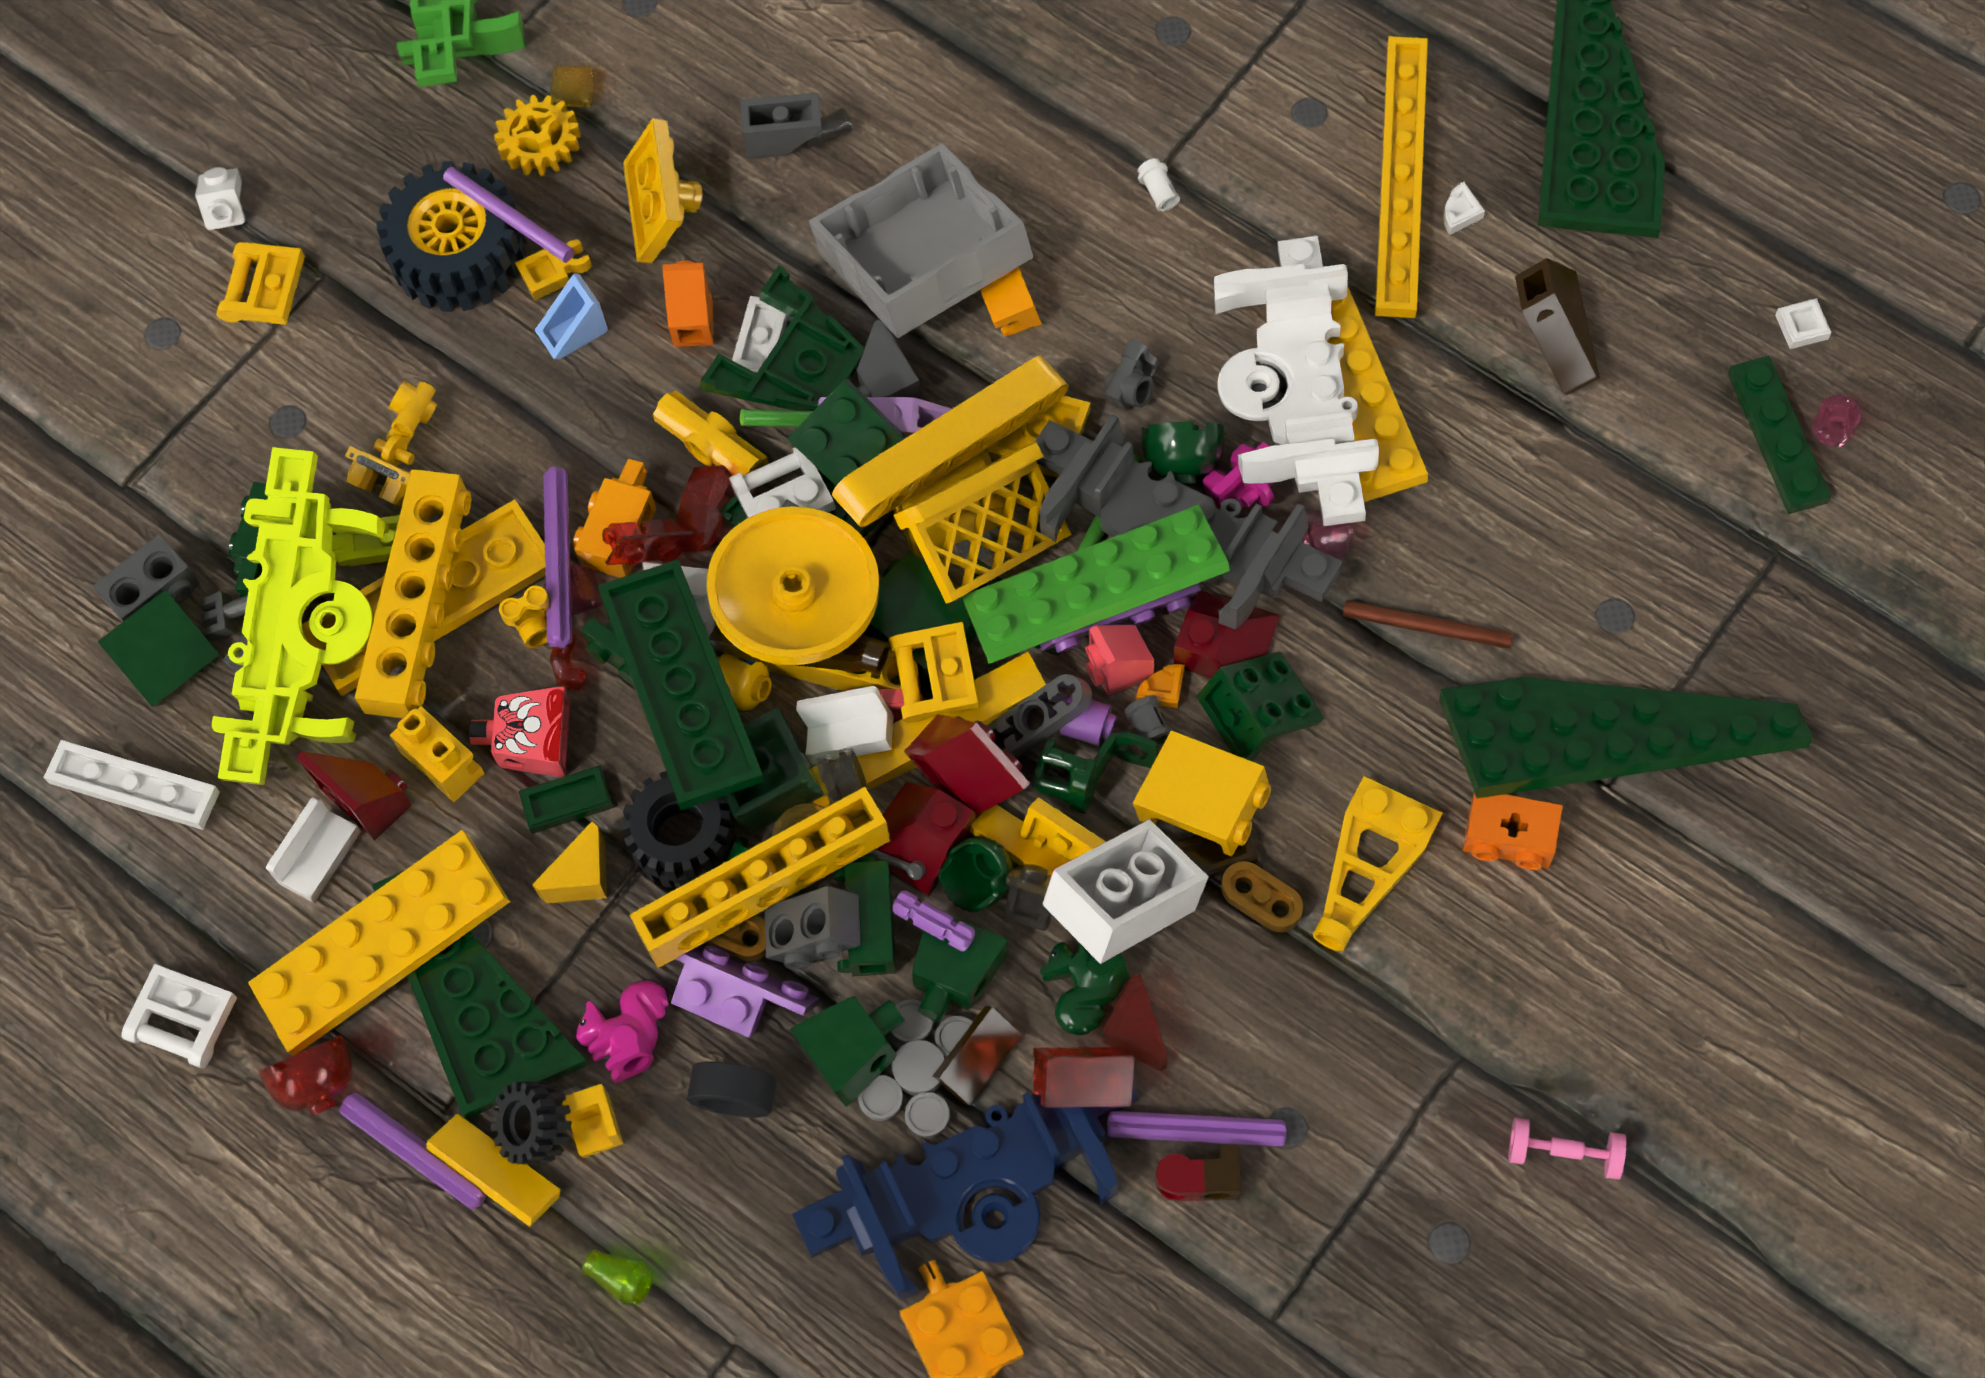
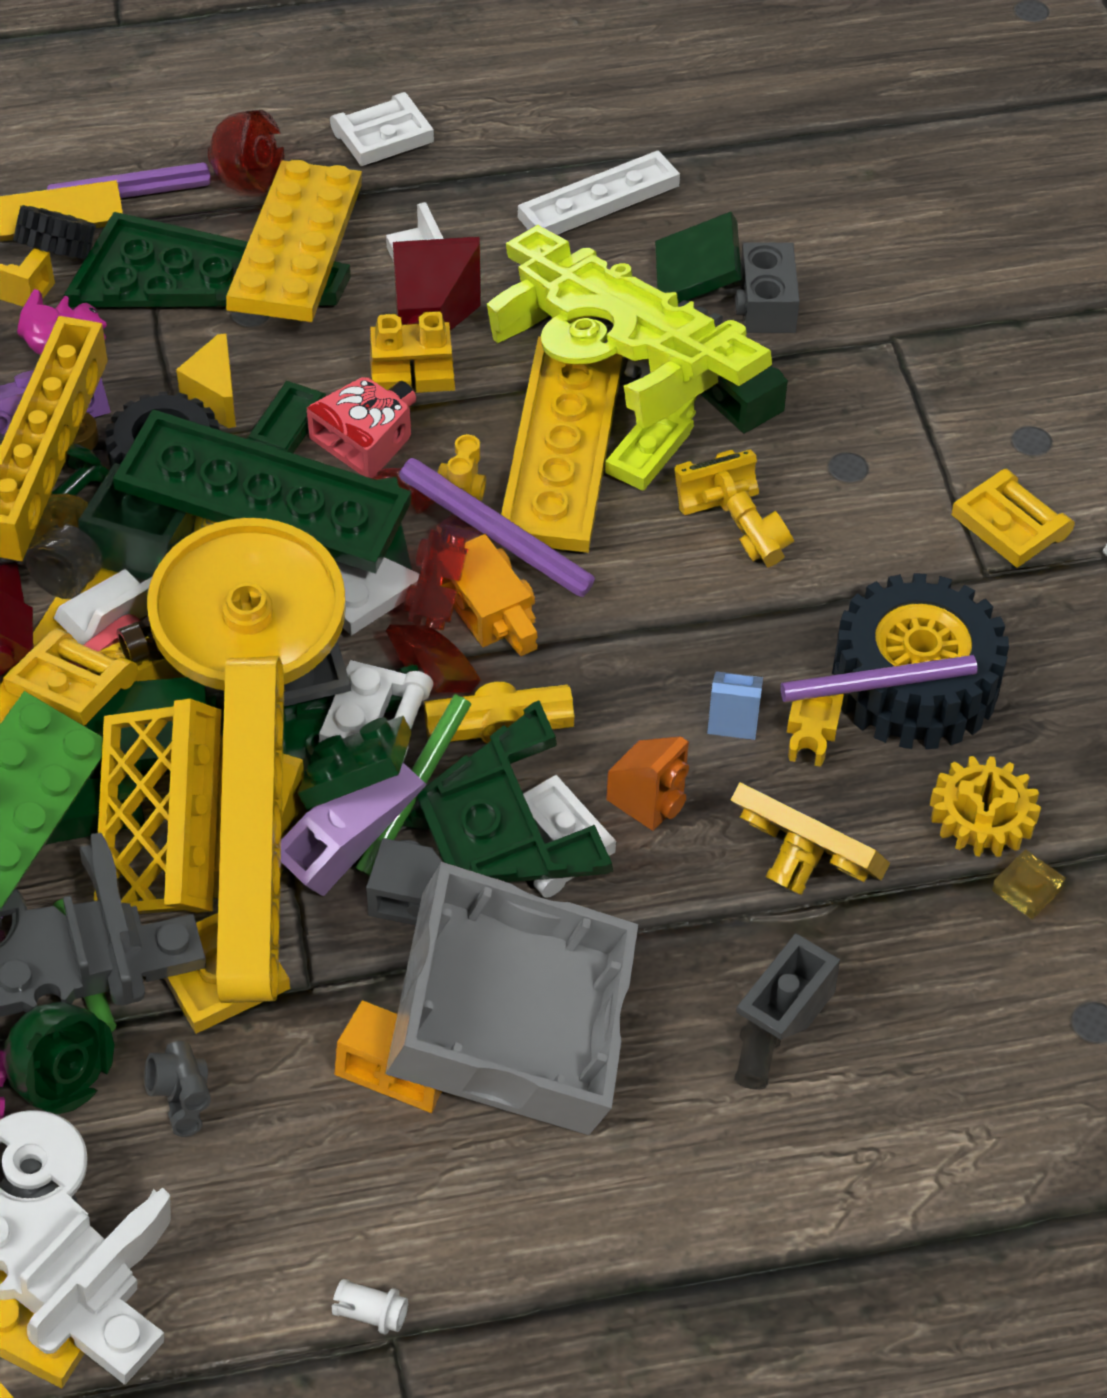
camera: 125 degrees right, 15 degrees down
(425, 496) = (564, 411): yellow brick -> none

